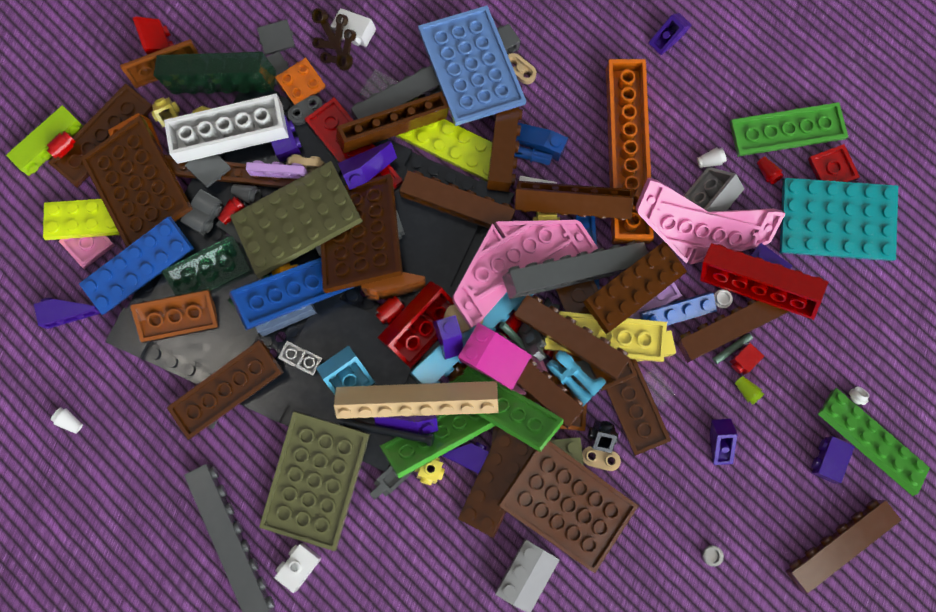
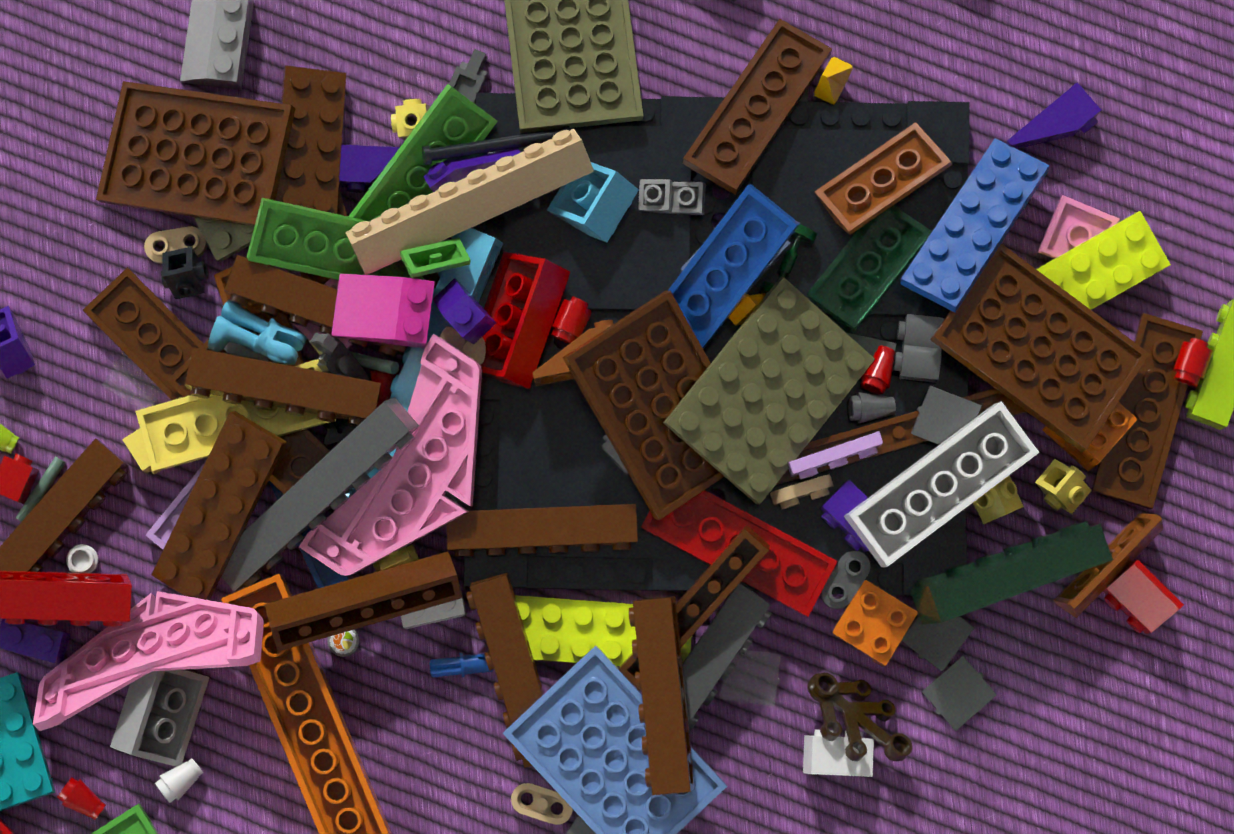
camera: 155 degrees right, 5 degrees up
(177, 390) = (833, 80): none -> yellow slope
(366, 165) = (704, 515): dark purple slope -> none
(429, 79) = (663, 695): none -> reddish brown brick
(451, 373) = (435, 257): none -> bright green slope
(542, 140) = (457, 694): blue slope -> none
(682, 309) = (141, 510): plate -> none

